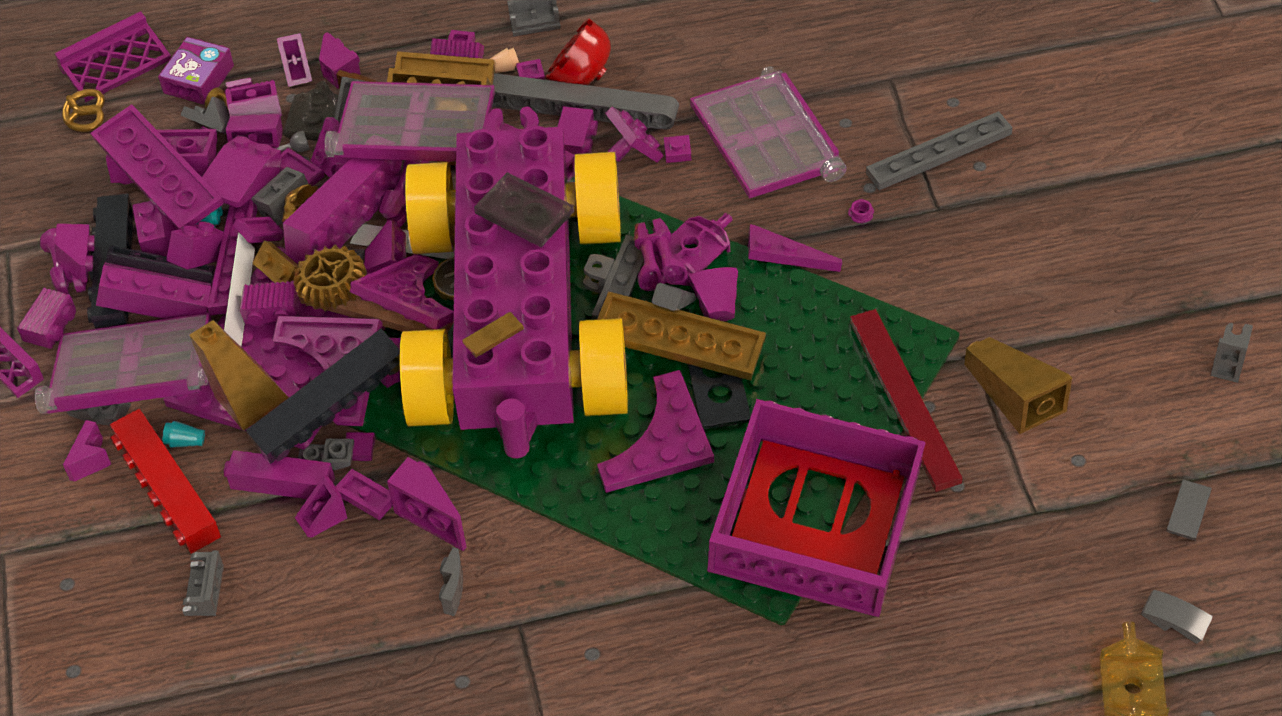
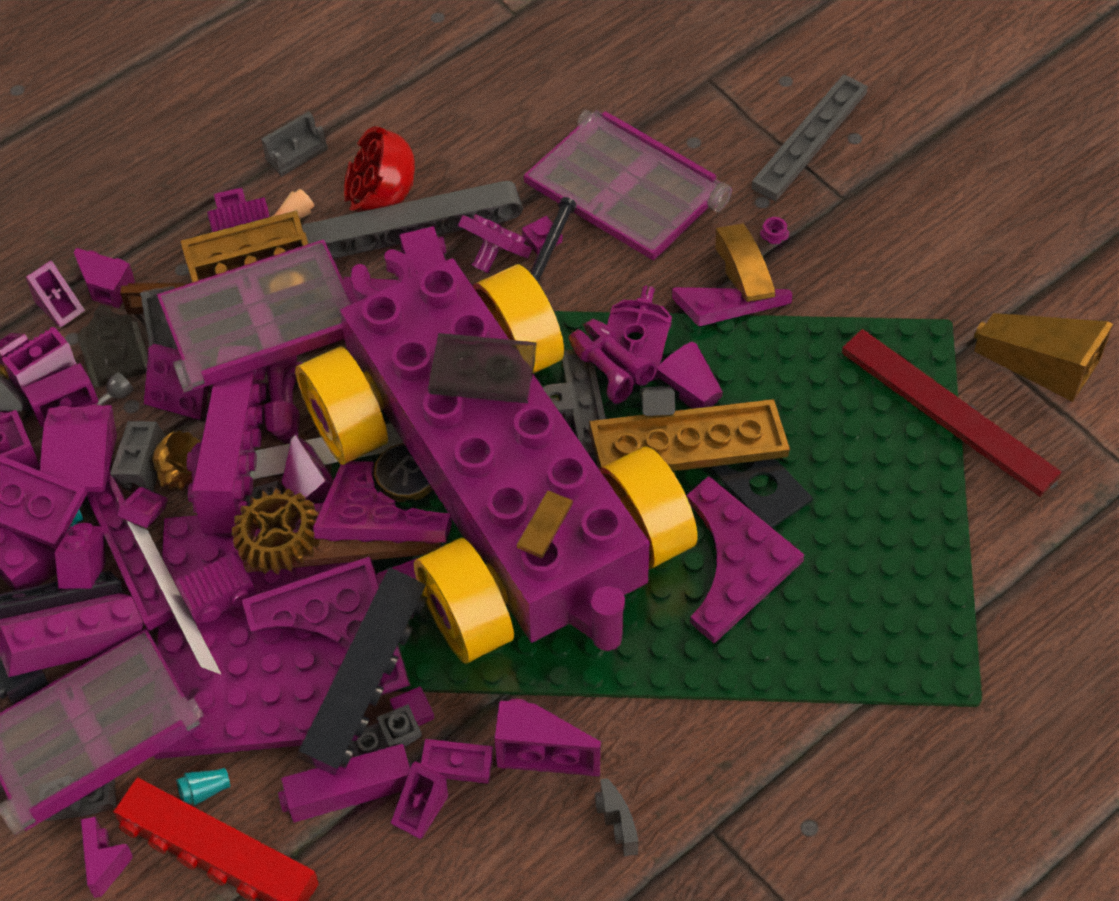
camera: 30 degrees left, 5 degrees up
(235, 376) = (247, 694): pearl gold slope -> none
(275, 263) = (194, 540): pearl gold plate -> none
(295, 161) = (128, 411): magenta tile -> none
(530, 69) = (331, 207): magenta plate -> none
(705, 133) = (566, 207): none -> black bar
(802, 558) = (965, 625): magenta door -> none
(816, 225) = (744, 262): none -> pearl gold slope

